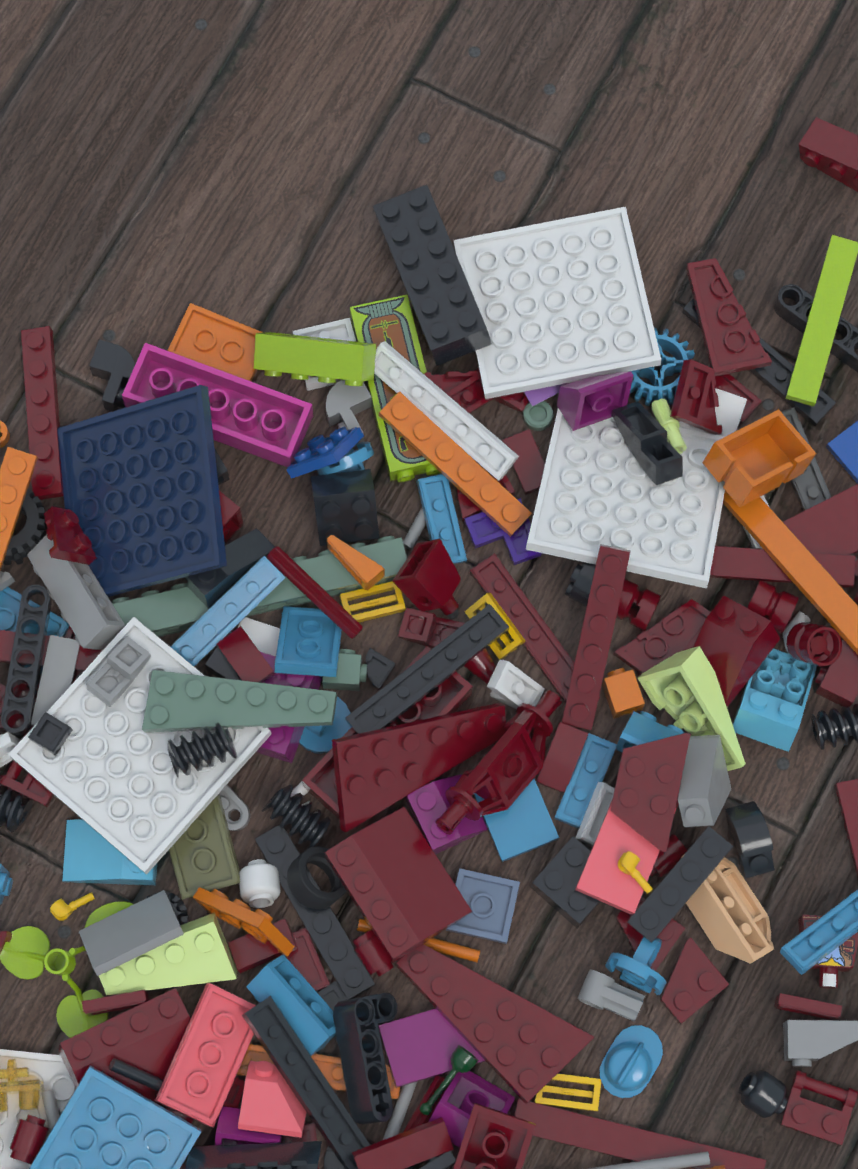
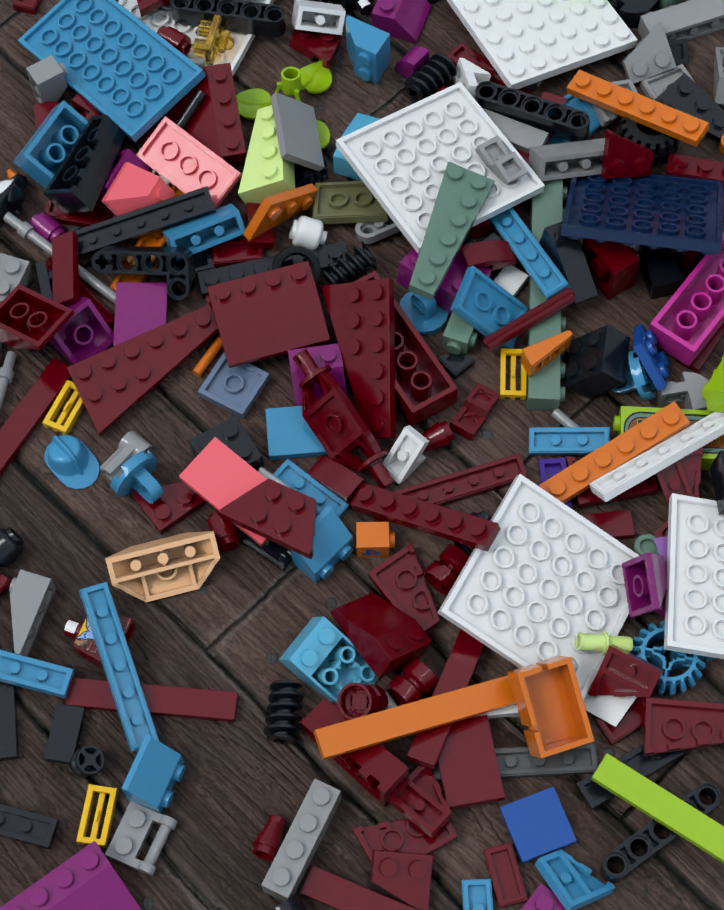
camera: 110 degrees right, 10 degrees down
(50, 733) = (466, 108): black tile -> none
(62, 911) = (335, 106): yellow hand -> none
(114, 1003) = (251, 108): dark red tile -> none
(201, 749) = (416, 192): black piece -> none
(428, 672) = (433, 379): black plate -> none
(429, 578) = (517, 411): dark red torso -> none
(462, 1062) = (116, 329): dark green hinge -> none
(513, 631) = (464, 457): yellow tile -> none
(627, 865) = (218, 479): yellow hand -> none
(648, 443) = (591, 616): black slope -> none
(680, 884) = (189, 519): black plate -> none
(691, 983) = (114, 524): dark red wing -> none
(693, 697) = (360, 585): yellowish green wedge -> none
(703, 782) = (268, 567): light grey slope -> none
(752, 839) = (214, 599): black brick -> none
(808, 1007) = (58, 605): dark red tile -> none

